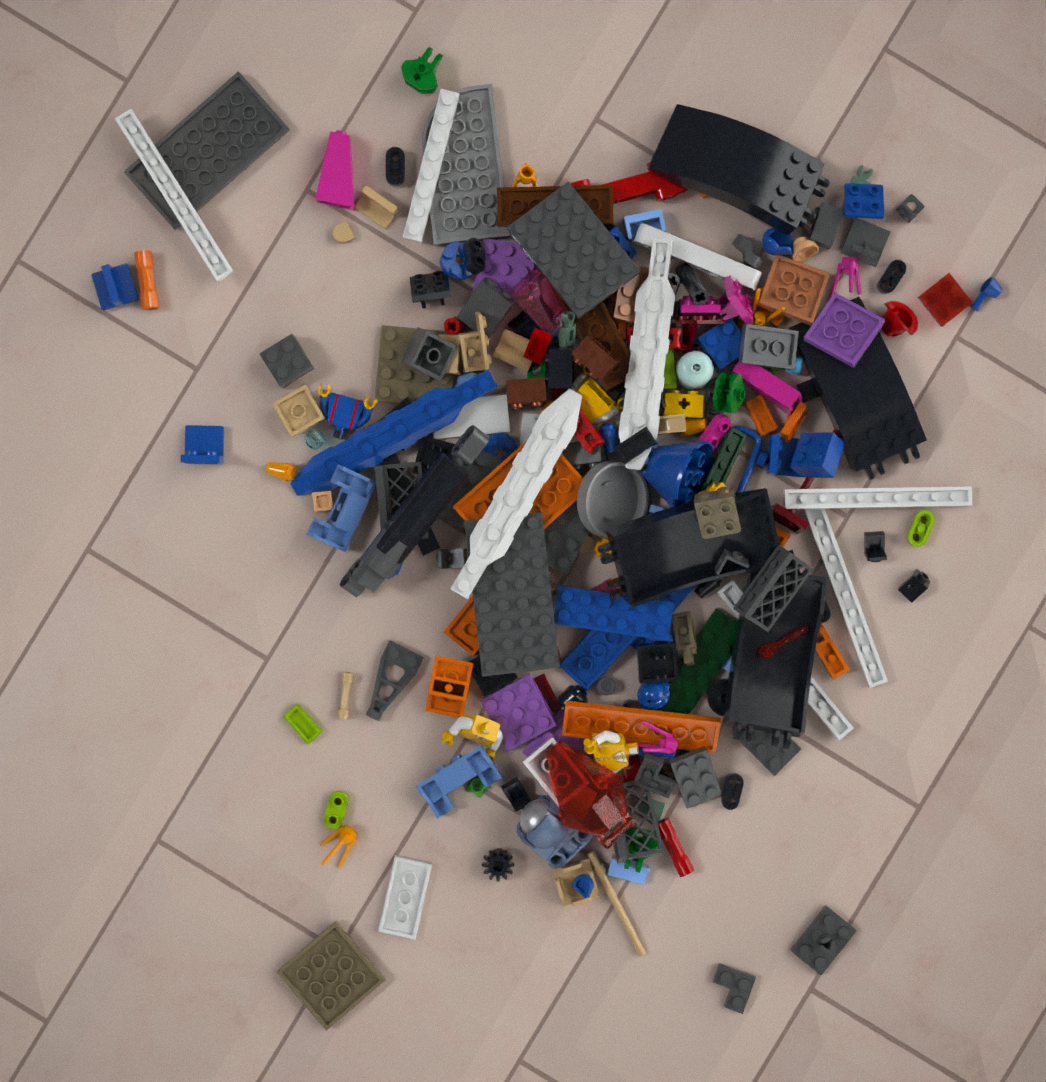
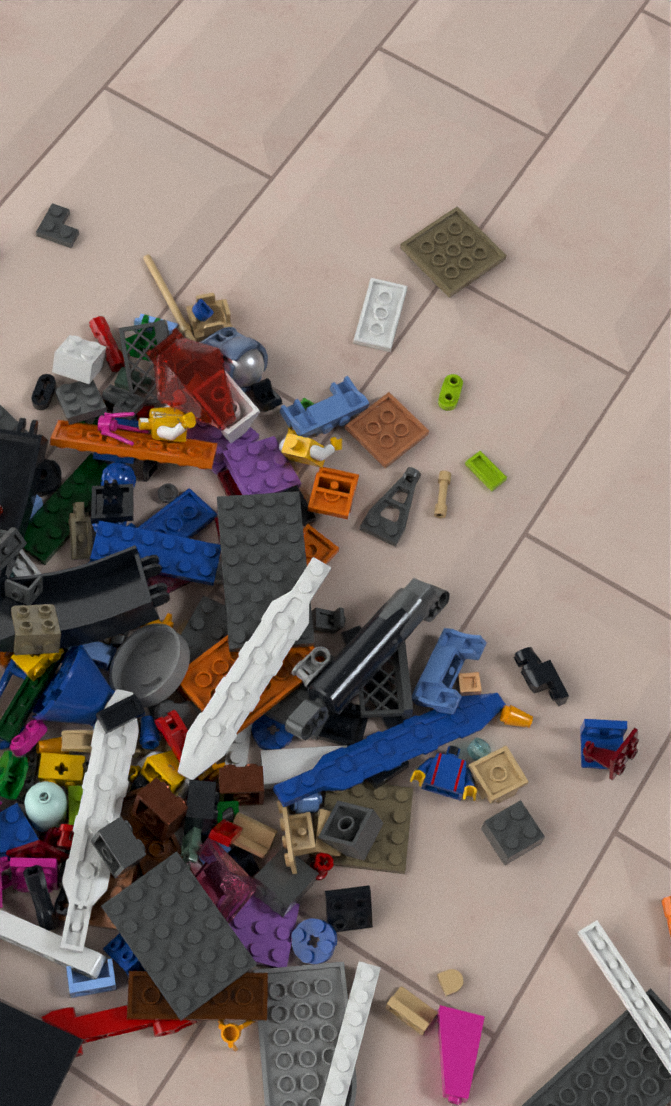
camera: 175 degrees right, 25 degrees down
(199, 426) = (613, 760): none -> dark red plate
(257, 510) = (541, 675): none -> black plate
(347, 834) = (438, 367): light orange plant -> none
(395, 167) = (389, 1059): black plate -> none
(398, 763) = (387, 430): none -> nougat plate
(466, 495) = (309, 668): none -> light grey piece
(474, 256) = (295, 942): black plate -> none
(505, 867) = (287, 336): black gear -> none
(573, 693) = (203, 480): black head -> none
(626, 316) = (118, 846): none -> dark grey brick
(700, 823) = (79, 359): none -> white brick

